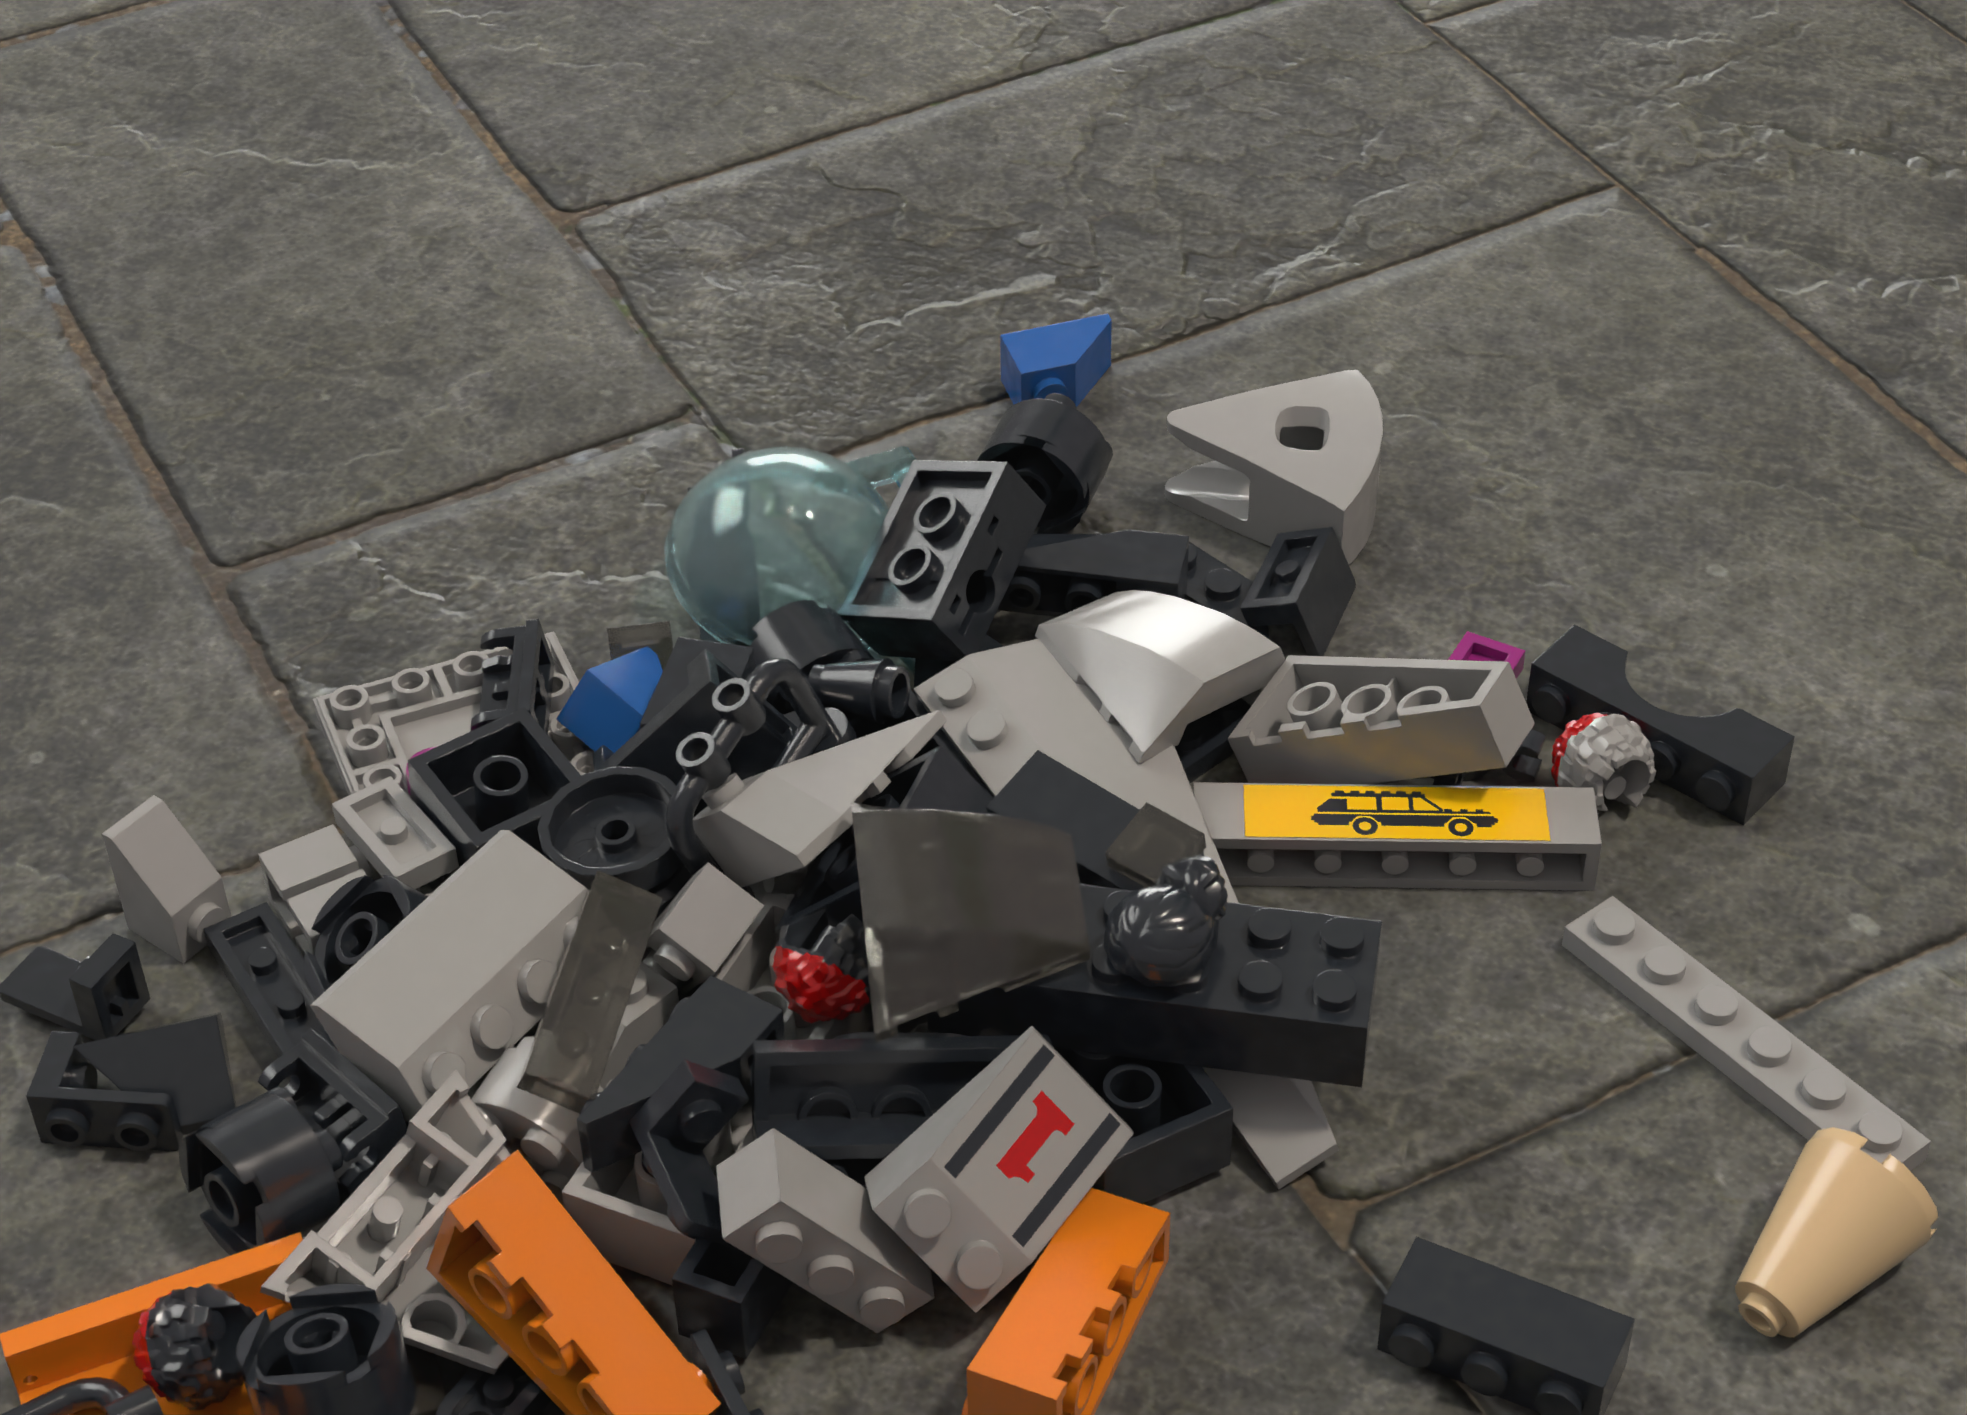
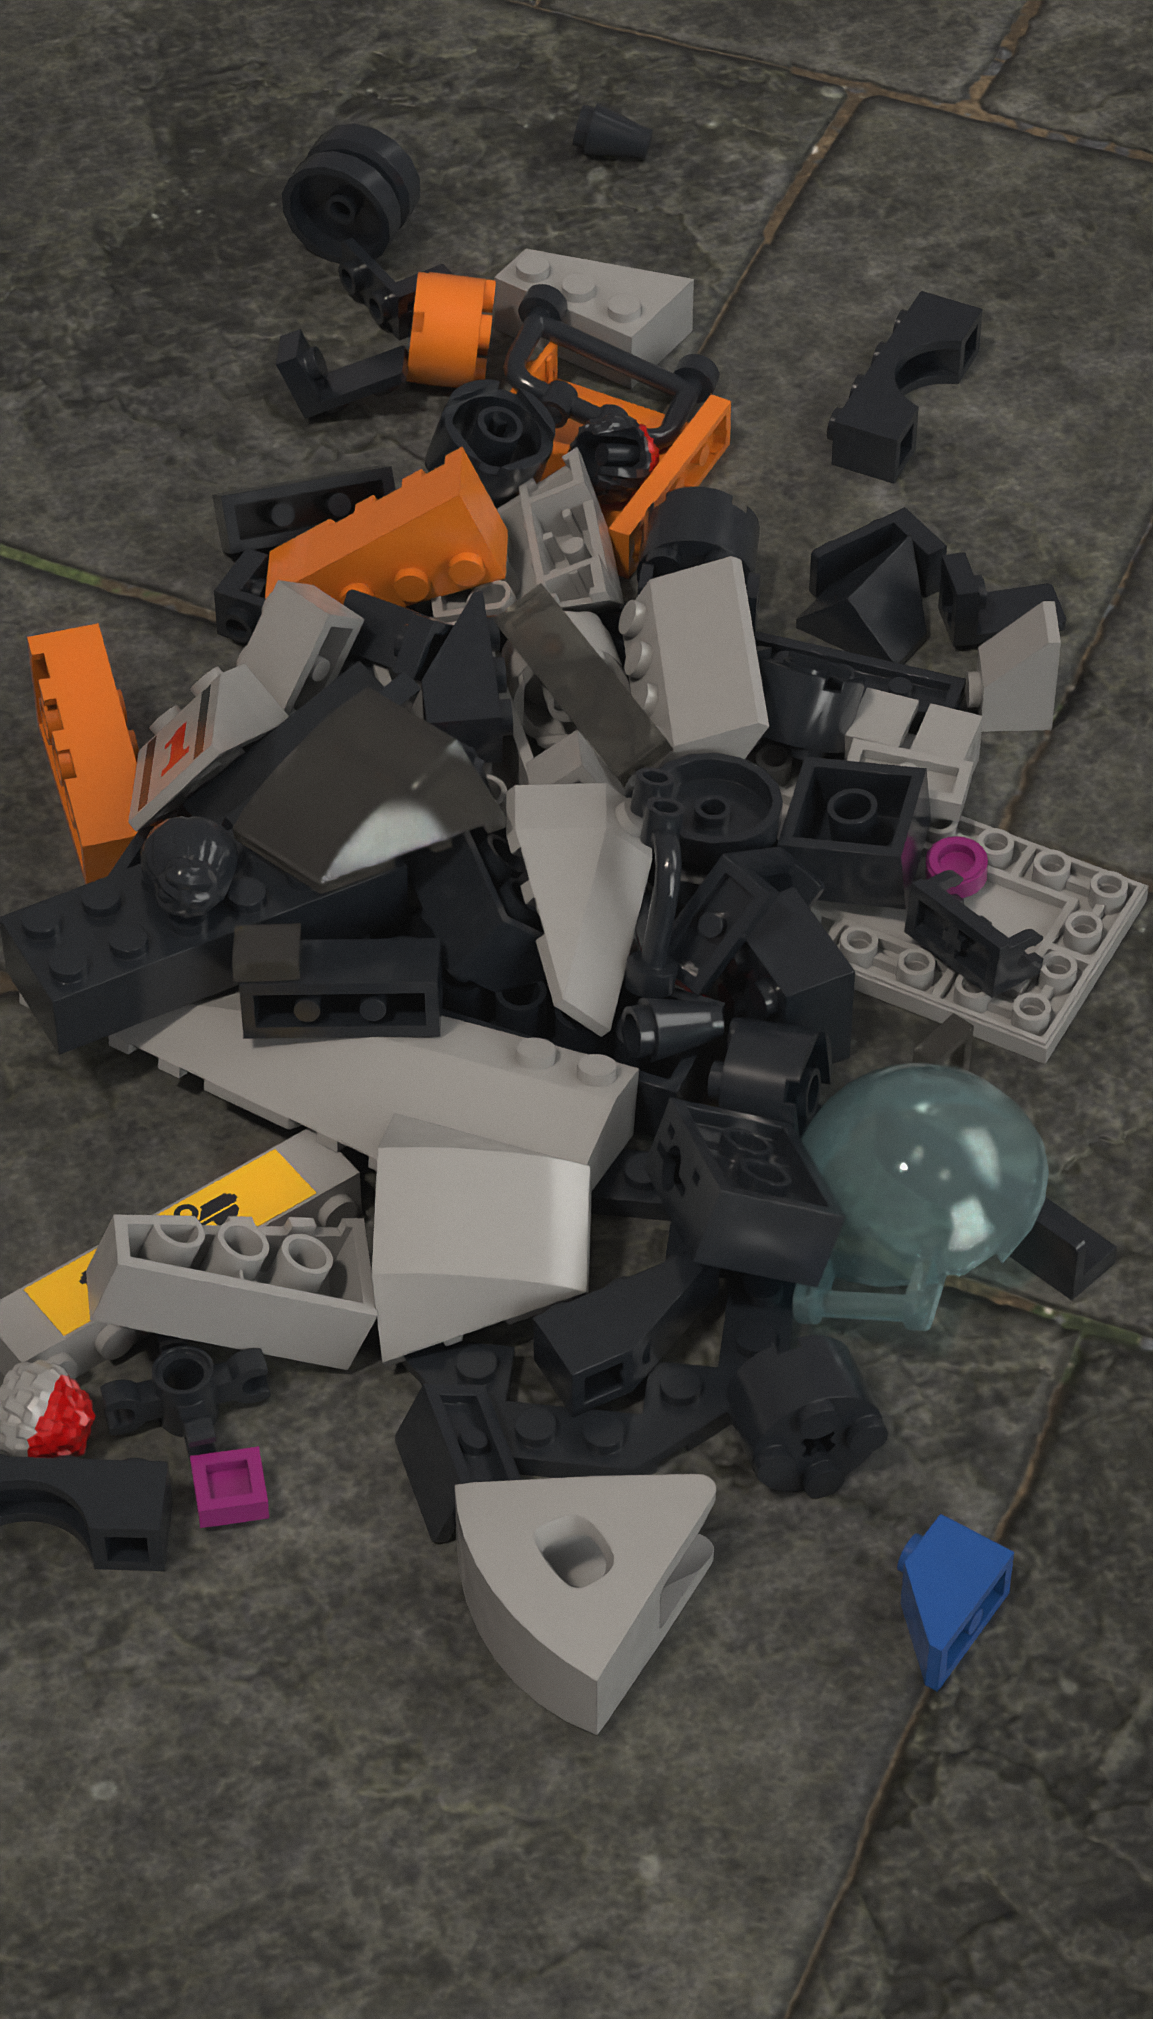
camera: 140 degrees right, 5 degrees up
(612, 699) = (888, 978): blue slope -> none

